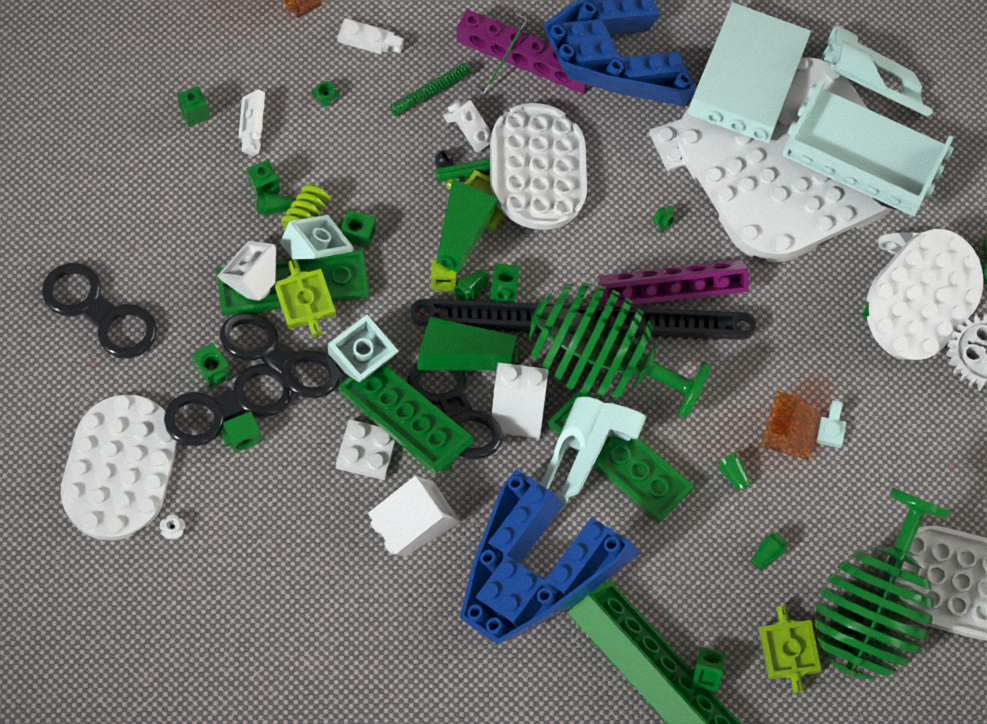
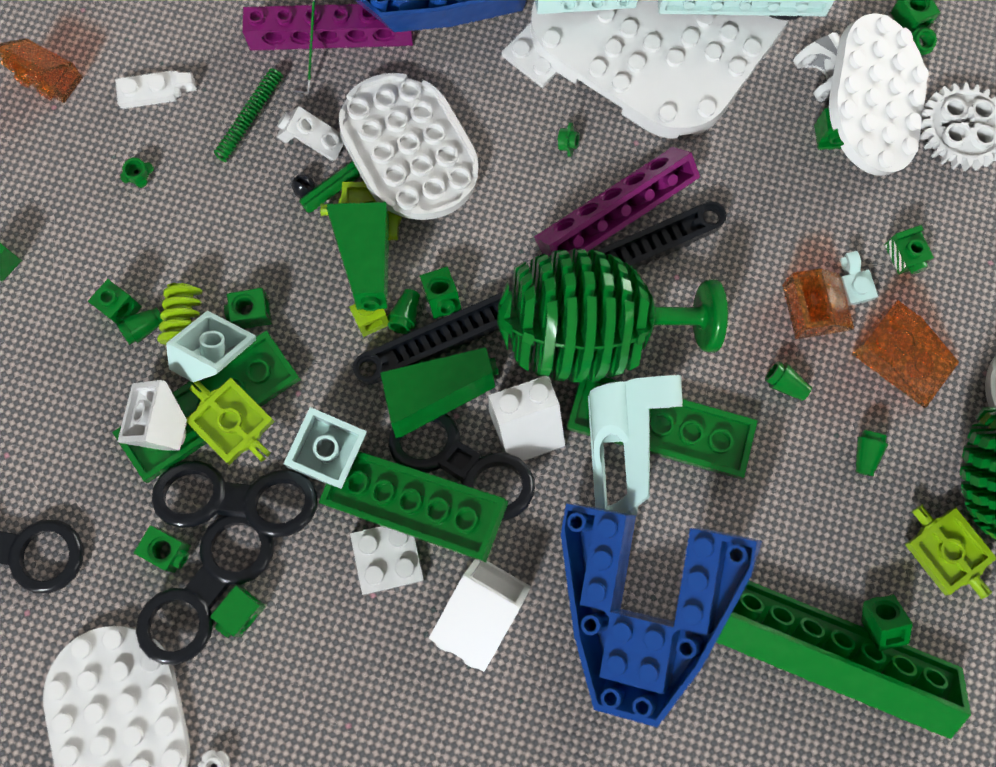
camera: 25 degrees left, 10 degrees up
(251, 122) = (69, 243): white hinge -> none
(839, 496) = (907, 353): none -> clear orange slope
(883, 414) = (909, 251): none -> green brick

